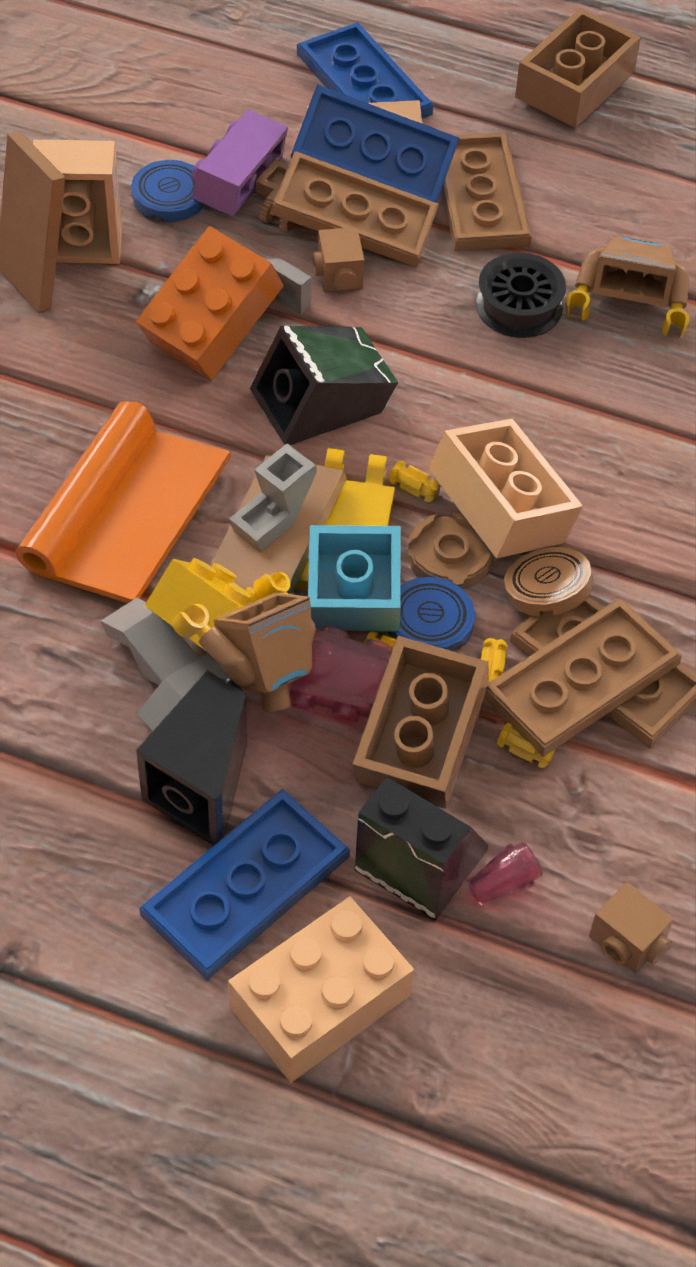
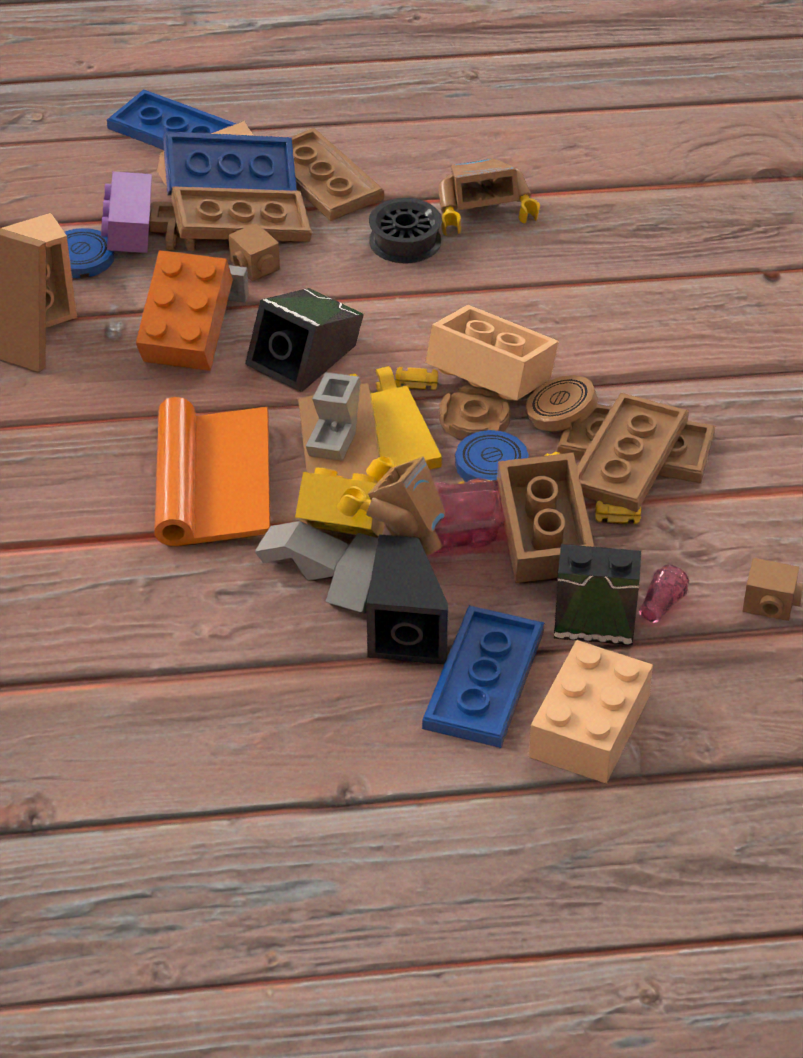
camera: 25 degrees left, 10 degrees down
(355, 577) = (438, 434): medium azure brick -> none
(577, 67) = (339, 65): medium nougat brick -> none

